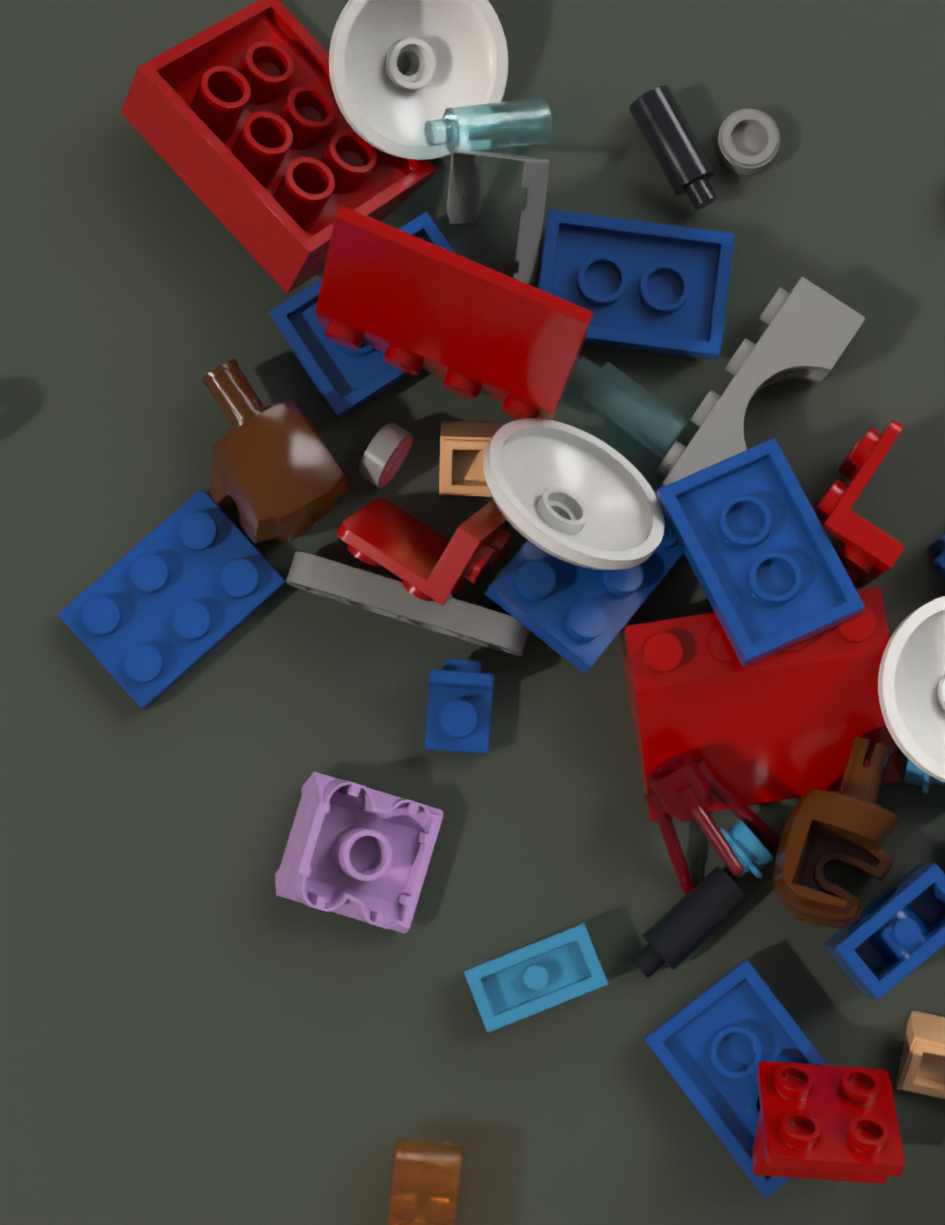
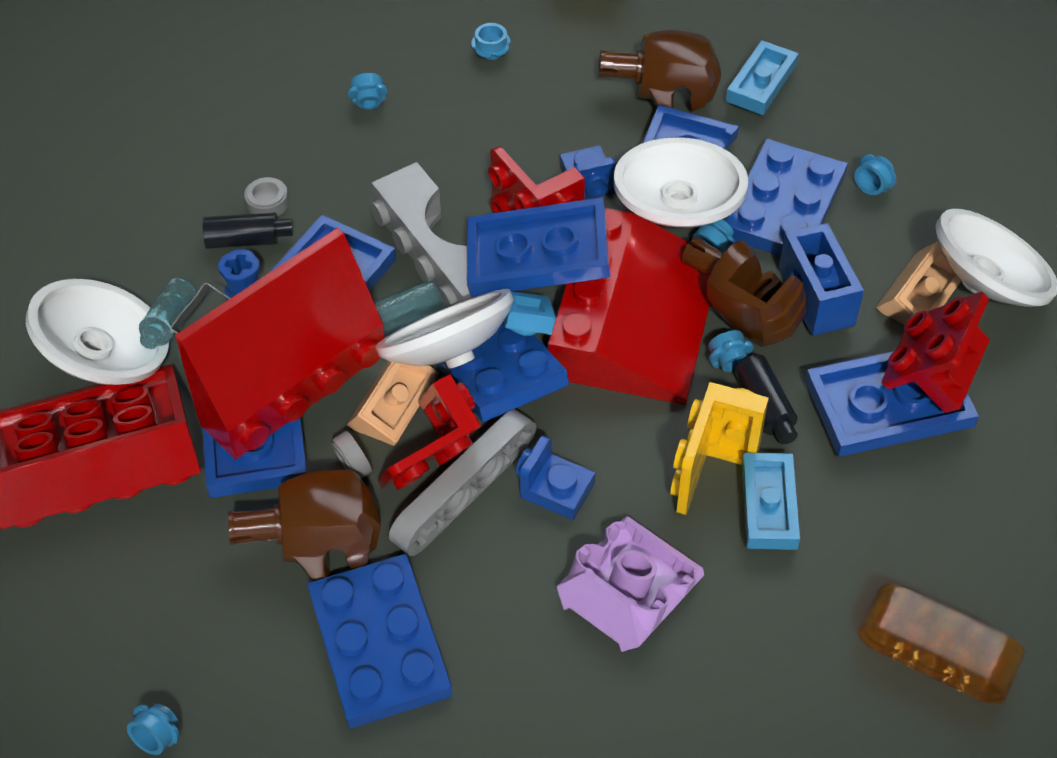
camera: 60 degrees left, 30 degrees down
(601, 173) = (239, 270): none -> blue bush
(607, 901) = (720, 427): none -> yellow bracket
(659, 583) = (530, 314): none -> dark azure plate
(682, 790) = (678, 355): dark red plant -> none

